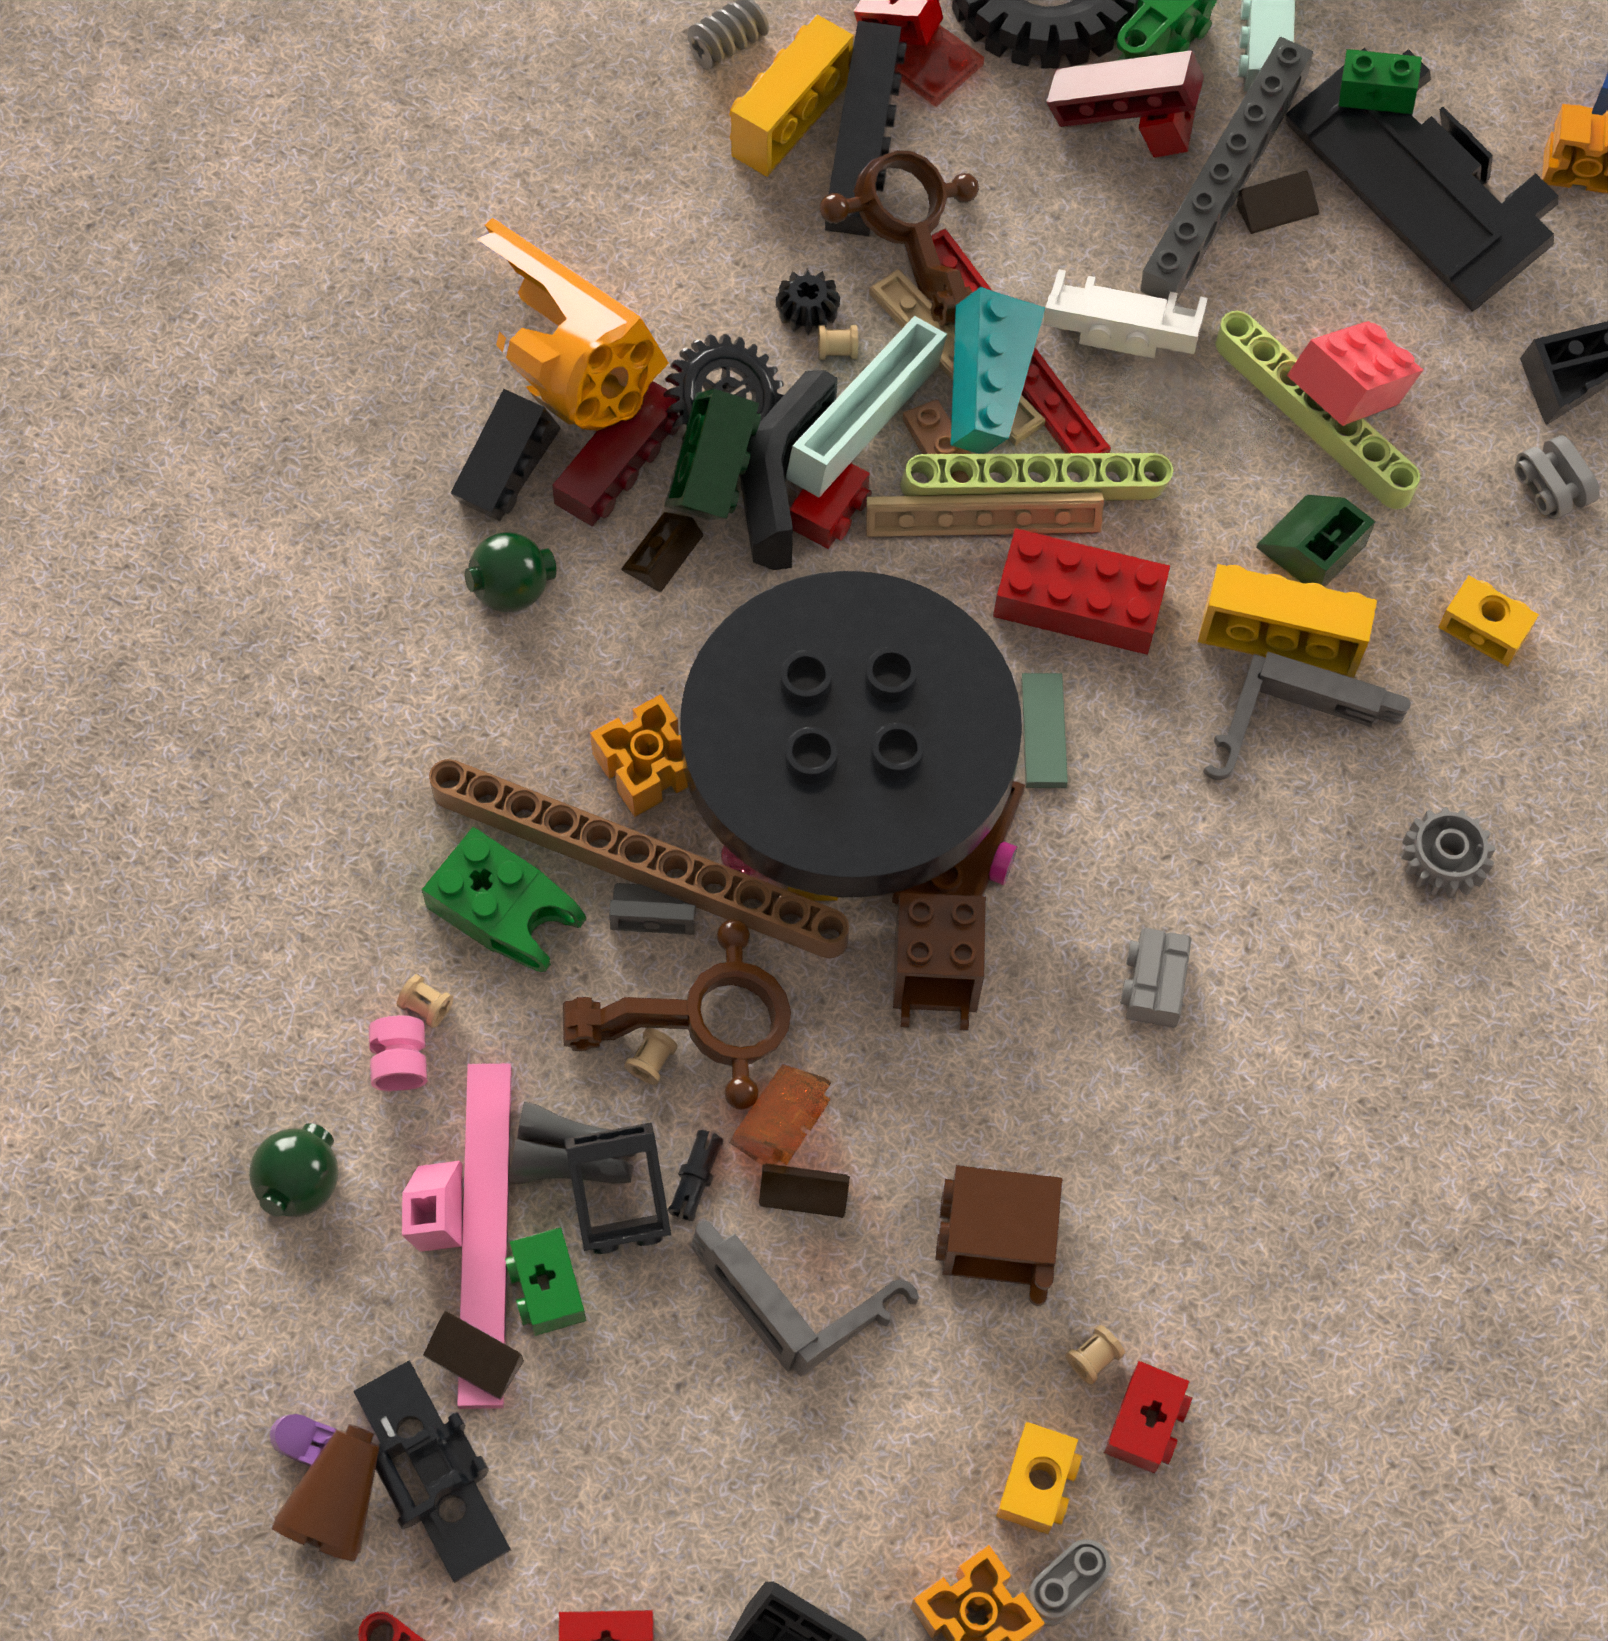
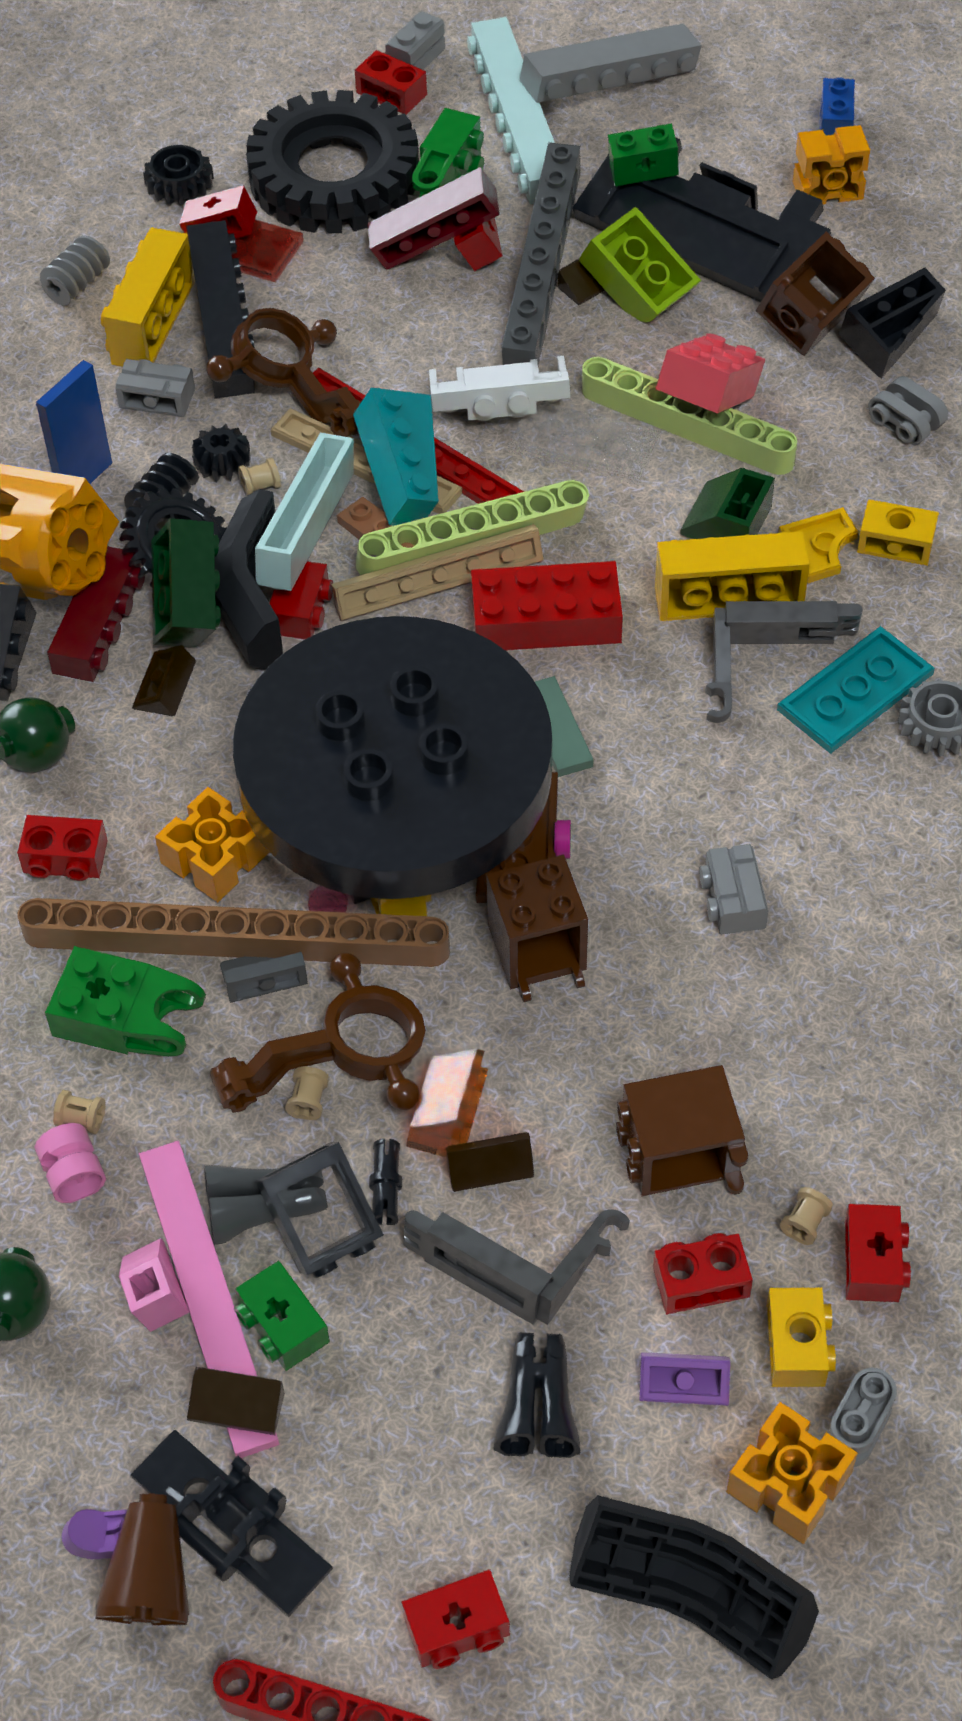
camera: 15 degrees left, 10 degrees down
(505, 700) = (62, 847): none -> red brick
(656, 243) = (75, 425): none -> blue tile
(735, 318) = (167, 473): none -> black piece
(765, 201) = (155, 387): none -> light grey brick
(772, 1485) = (558, 1429): none -> black piece
(913, 1478) = (684, 1378): none -> medium lavender slope
(968, 1391) = (706, 1283): none -> red brick
(1328, 214) = (638, 267): none -> lime brick
(1373, 788) = (855, 689): none -> teal tile
(1402, 603) = (824, 539): none -> yellow tile
(1487, 319) = (799, 308): none -> reddish brown container

